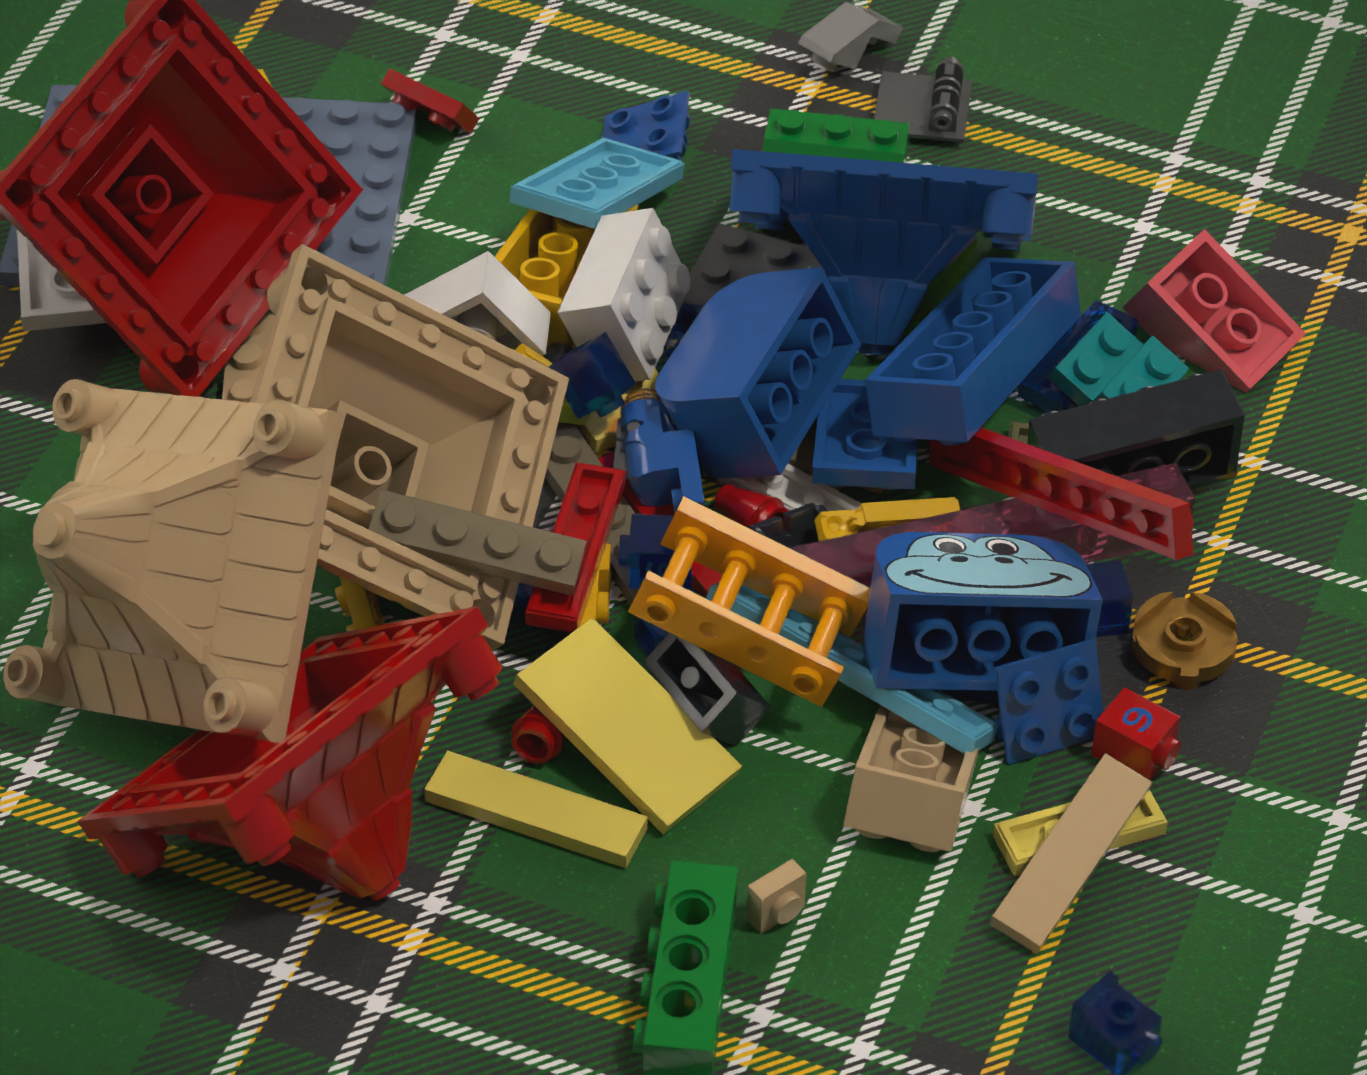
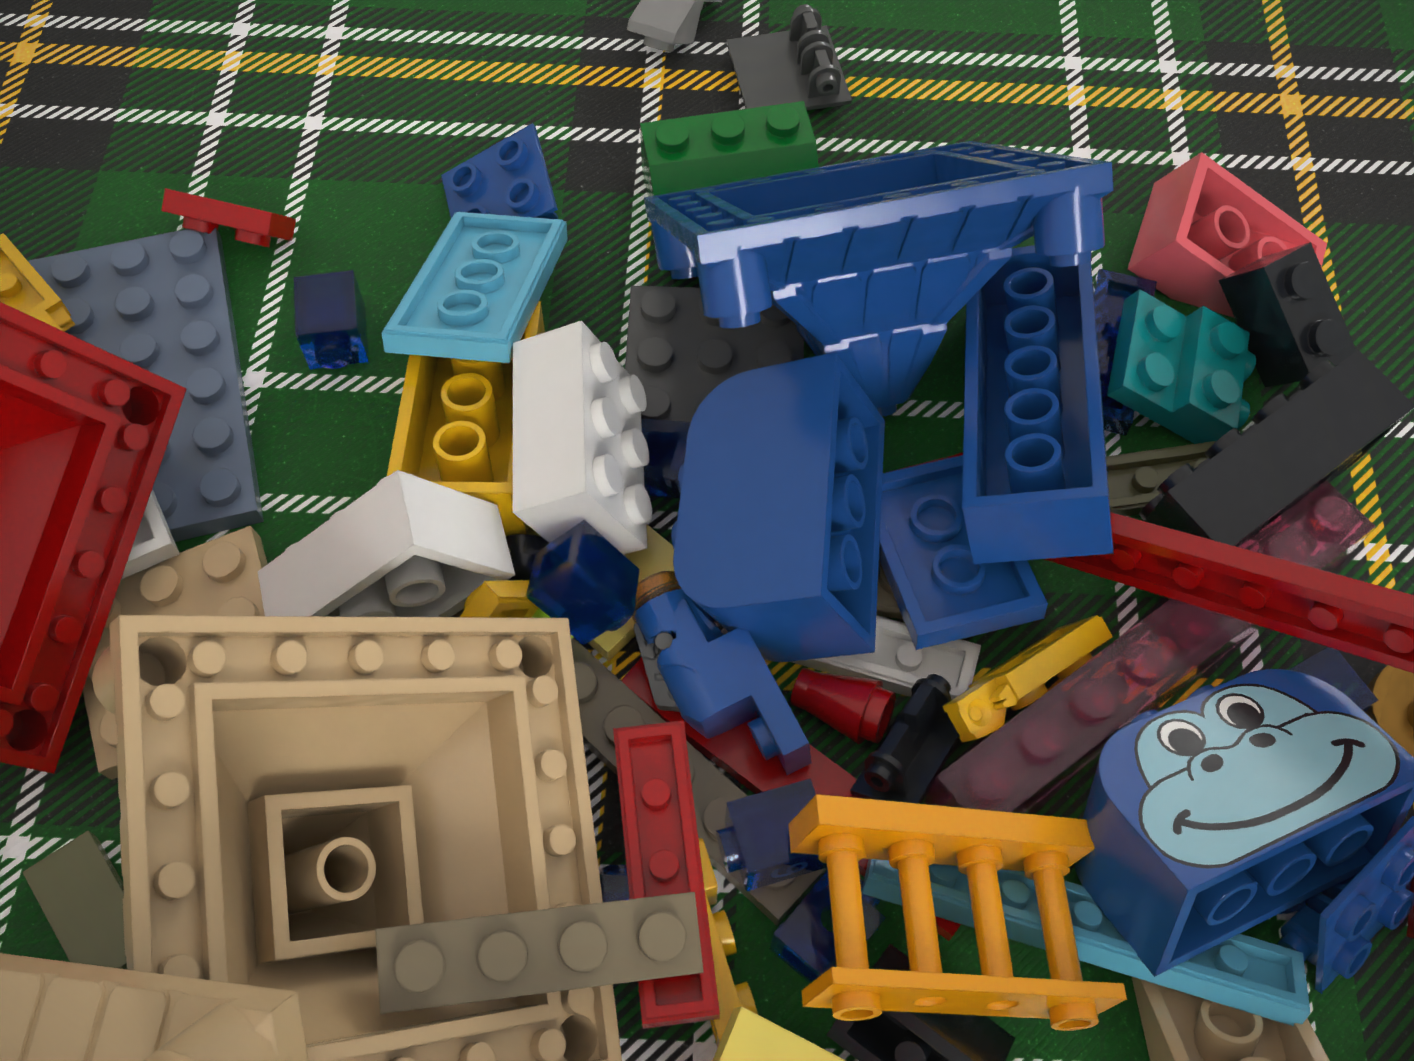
camera: 20 degrees left, 15 degrees up
(480, 188) = (330, 320): none -> clear blue brick
(1217, 340) = (1288, 315): none -> black brick

